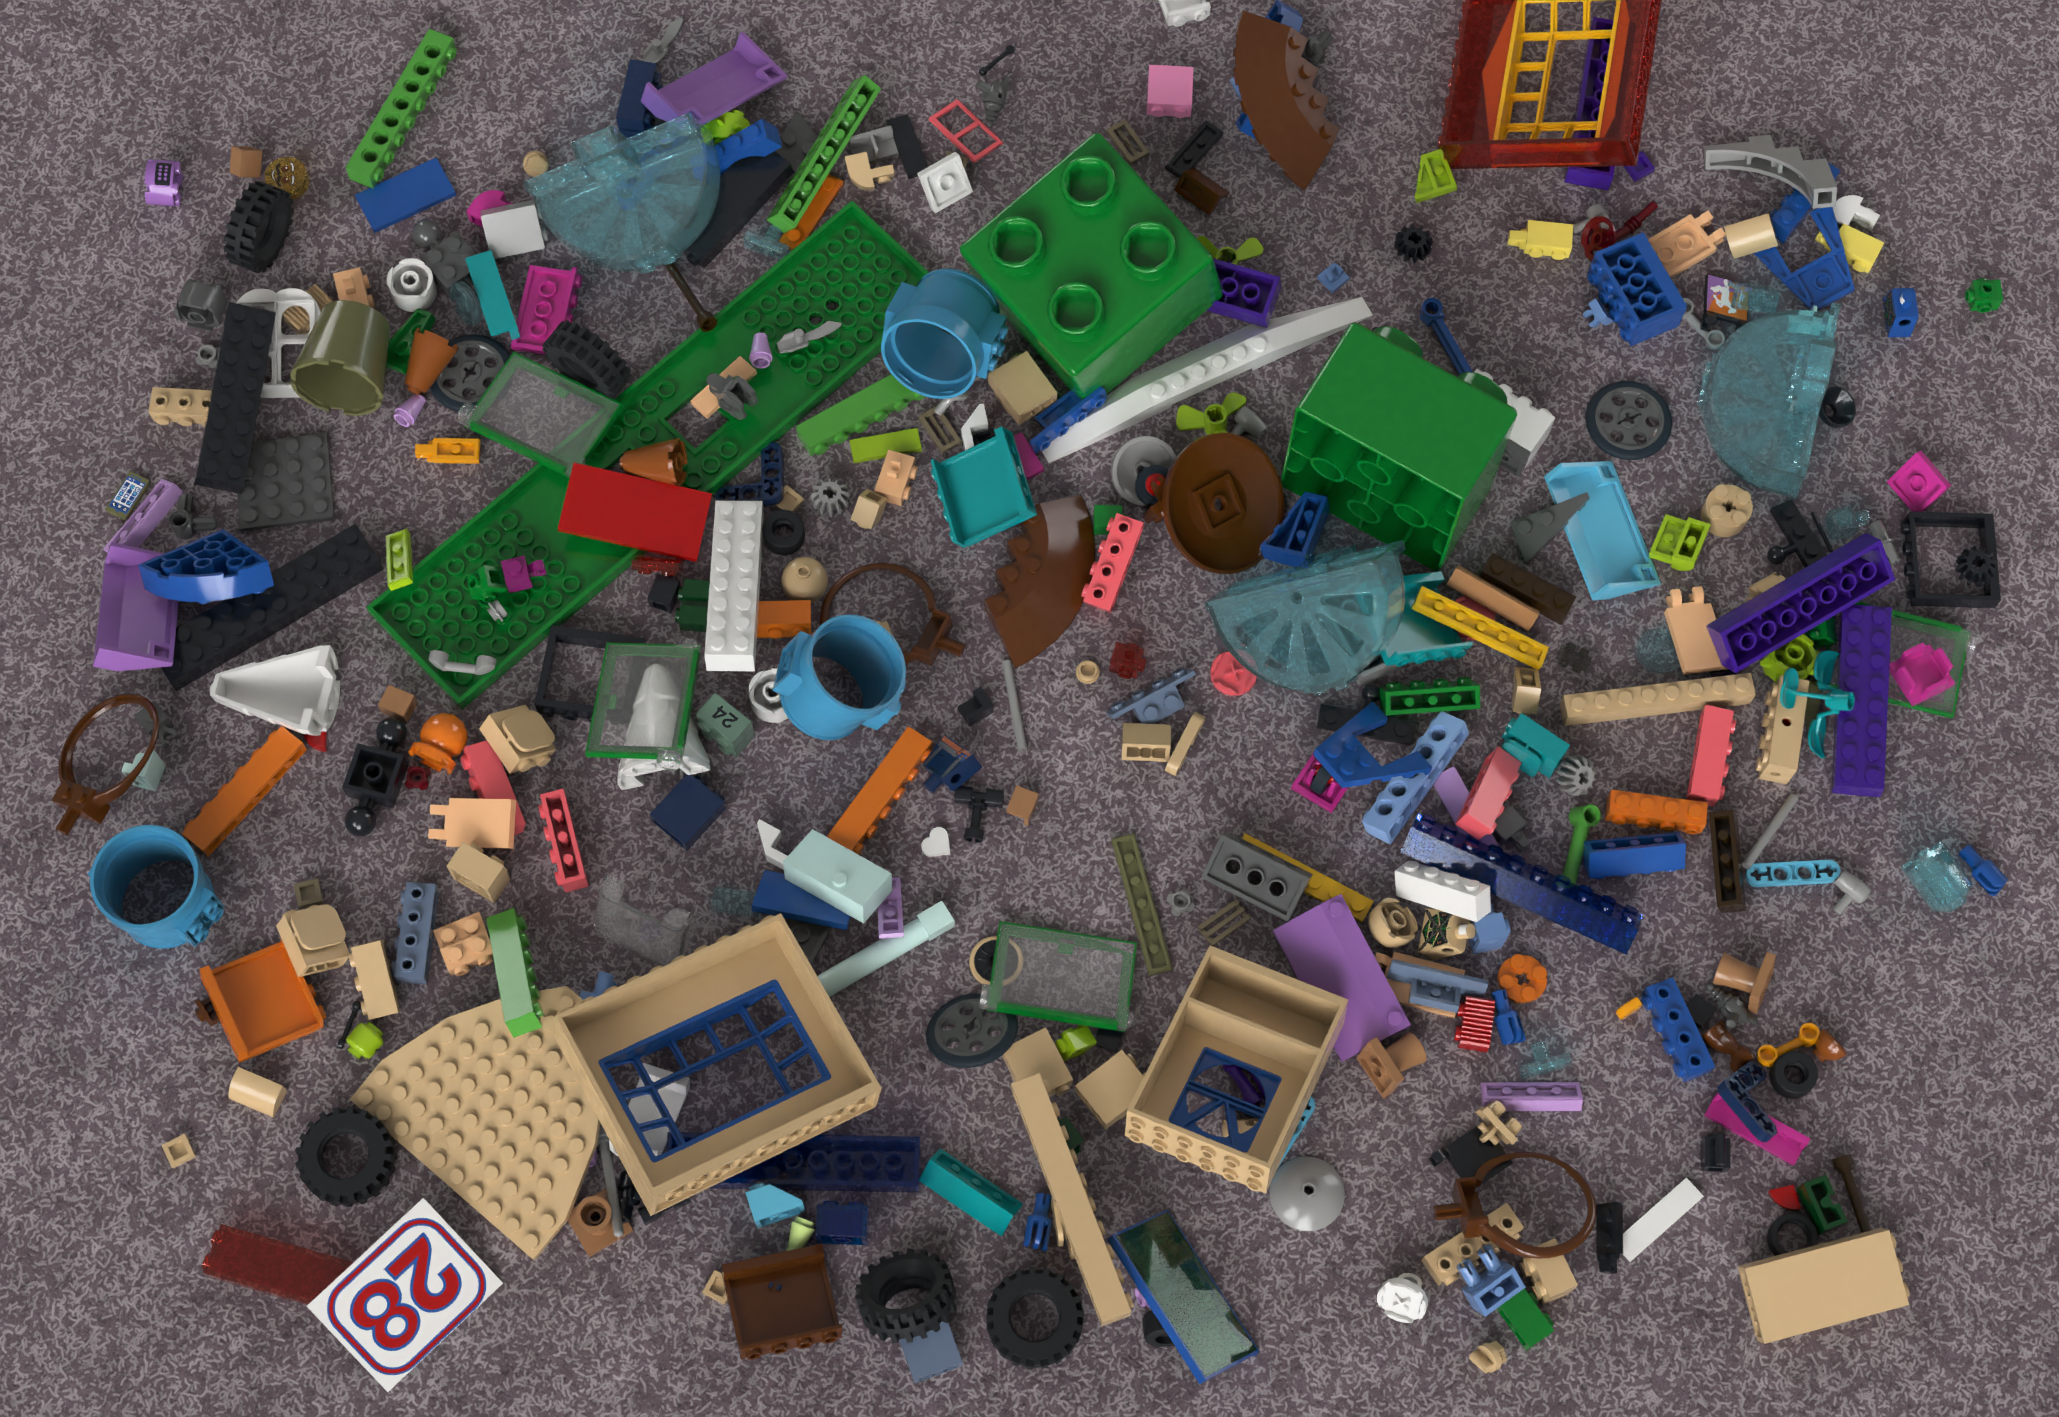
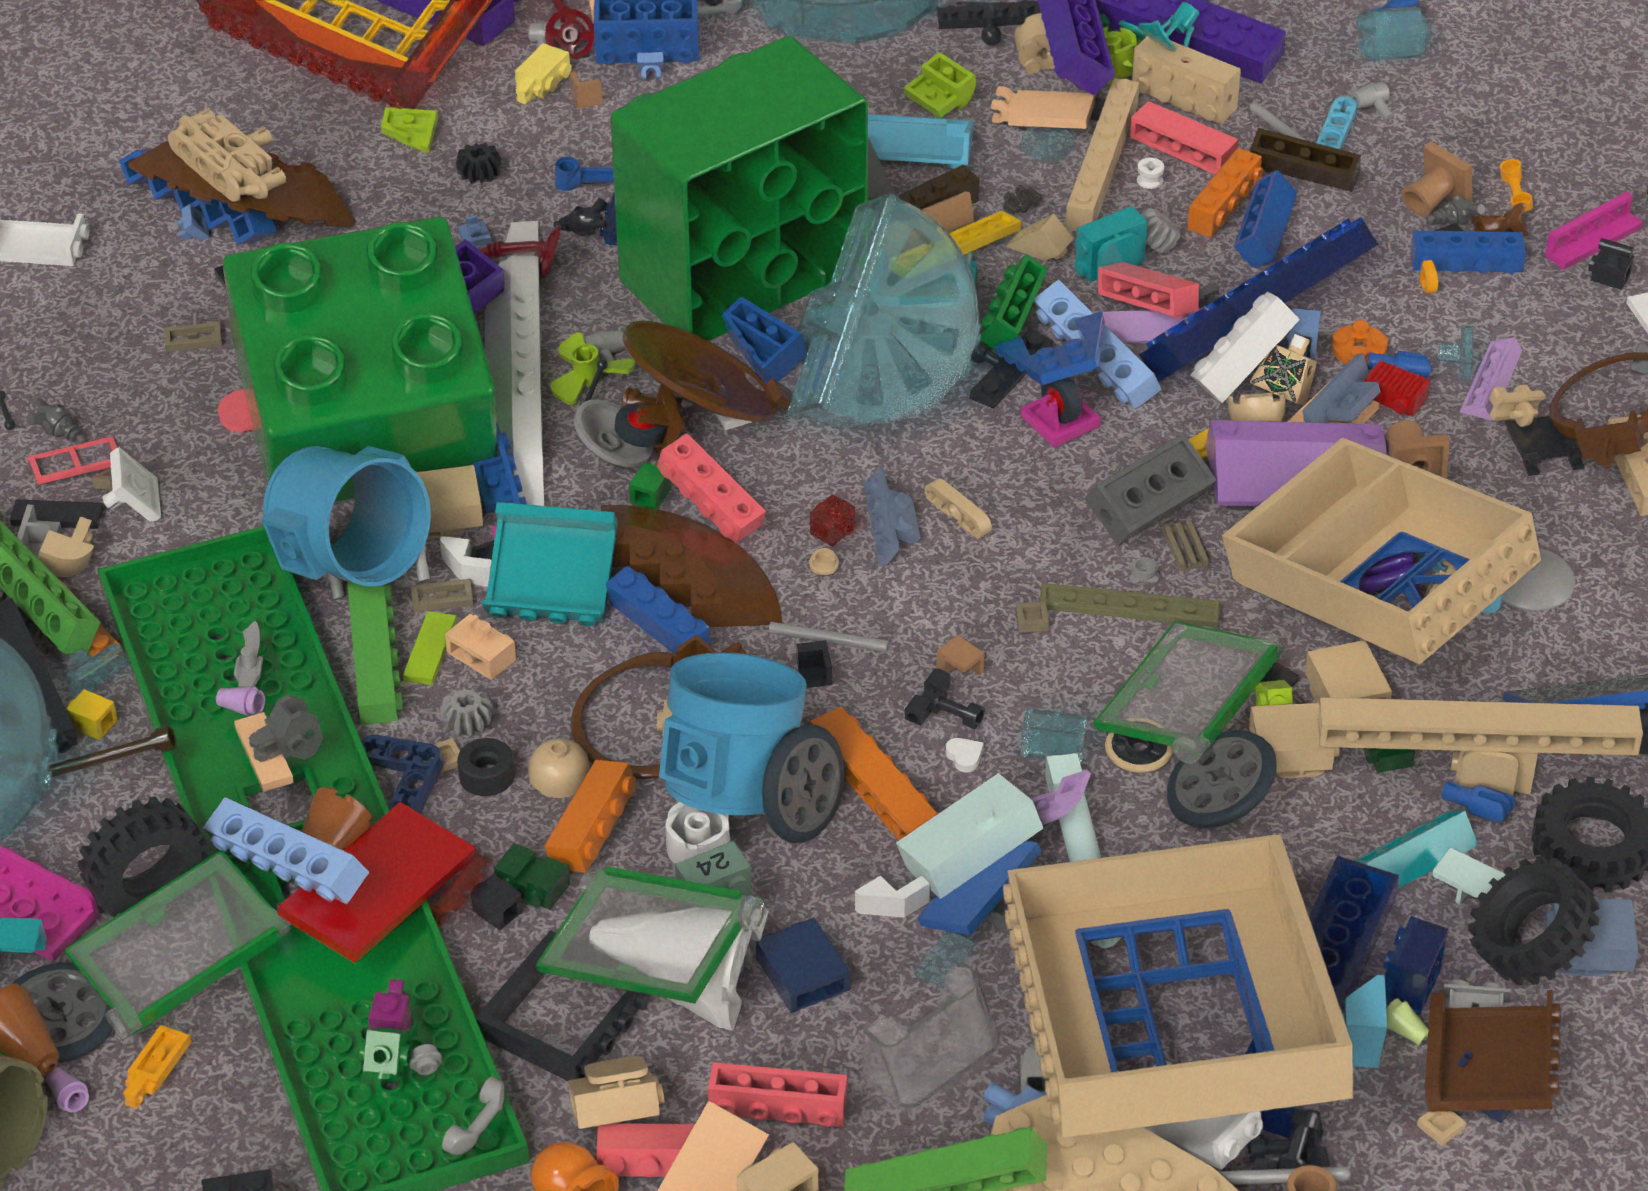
camera: 65 degrees left, 25 degrees down
(399, 559) = (281, 1153): lime tile -> none
(617, 444) = (285, 851): none -> light blue brick
(725, 264) = (92, 714): none -> yellow brick
(734, 586) = (542, 812): white brick -> none
(839, 728) = (803, 783): none -> wedge
(840, 1266) = (1463, 996): none -> light grey hinge
(869, 509) = (509, 677): tan brick -> none
(949, 765) = (878, 701): dark blue torso -> none
(951, 1237) = (1465, 874): none -> light aqua panel
(969, 898) = (1053, 734): none -> clear light blue brick
(975, 581) = (654, 610): none -> blue brick
(1093, 839) = (1032, 617): none -> dark tan plate
(1146, 742) = (938, 538): tan brick -> none
(1169, 91) = (159, 279): bright pink brick -> none
(1179, 438) = (601, 365): none -> black hinge
(1230, 675) = (893, 449): coral tile -> none
(1250, 568) = (780, 394): none -> reddish brown tile
(1265, 66) = (226, 155): none -> tan piece
(1323, 333) = (543, 249): none -> dark red dish
(1538, 281) = (585, 93): none -> medium nougat panel
(1580, 834) = (1206, 245): bright green piece -> none
(1653, 749) = (1150, 173): none -> white wheel
(1728, 498) = (921, 42): tan brick -> none
(1737, 1098) = (1558, 218): dark blue beam -> none
(1785, 1087) = (1551, 191): black tyre -> none
(1828, 1047) = (1532, 159): dark orange brick -> none

